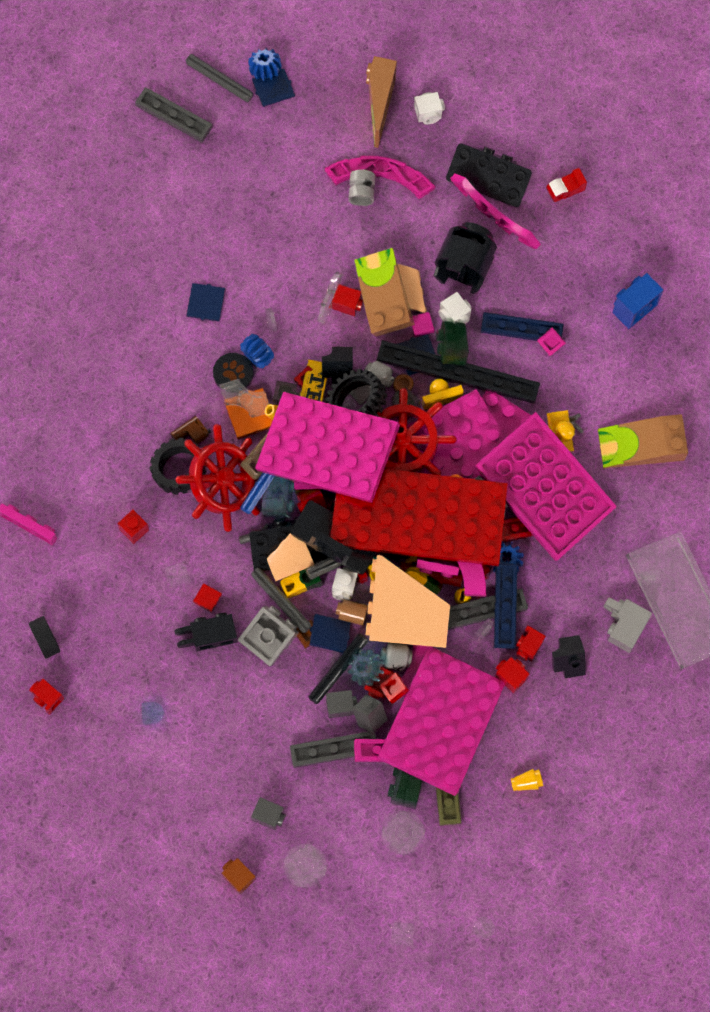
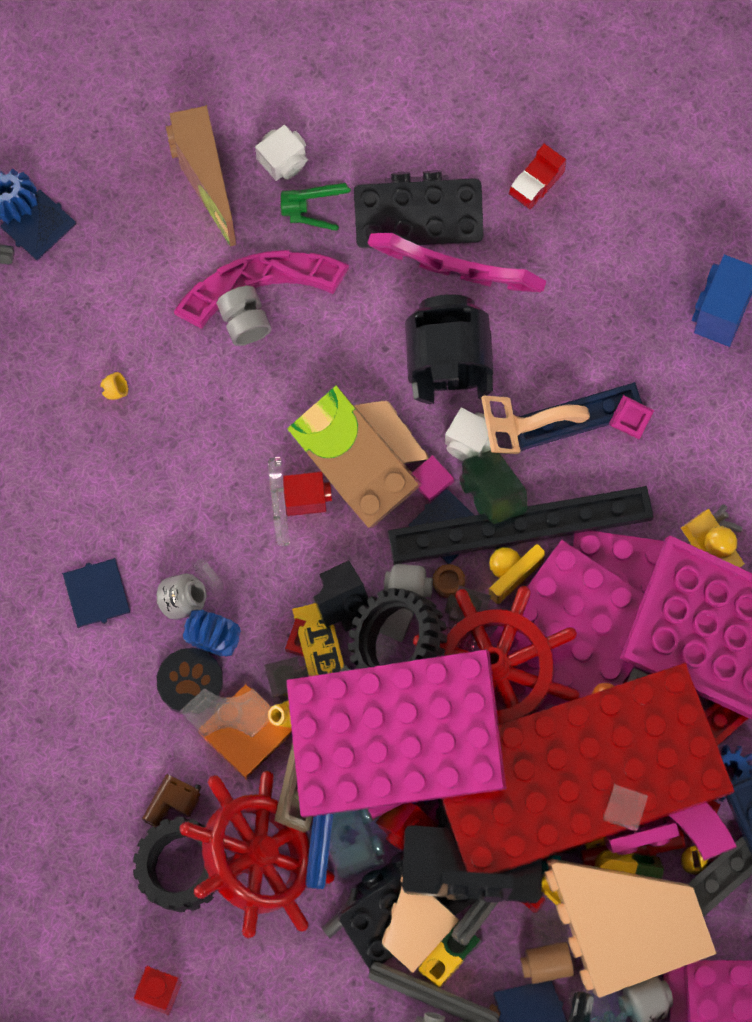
camera: 20 degrees left, 0 degrees up
(250, 323) = (180, 596): none -> light grey head
(271, 194) = (114, 386): none -> yellow hinge
(344, 584) = (515, 927): white brick -> none
(424, 138) = (296, 202): none -> green plant
(433, 543) = (625, 807): none -> clear tile
(483, 316) = (516, 425): none -> light nougat piece

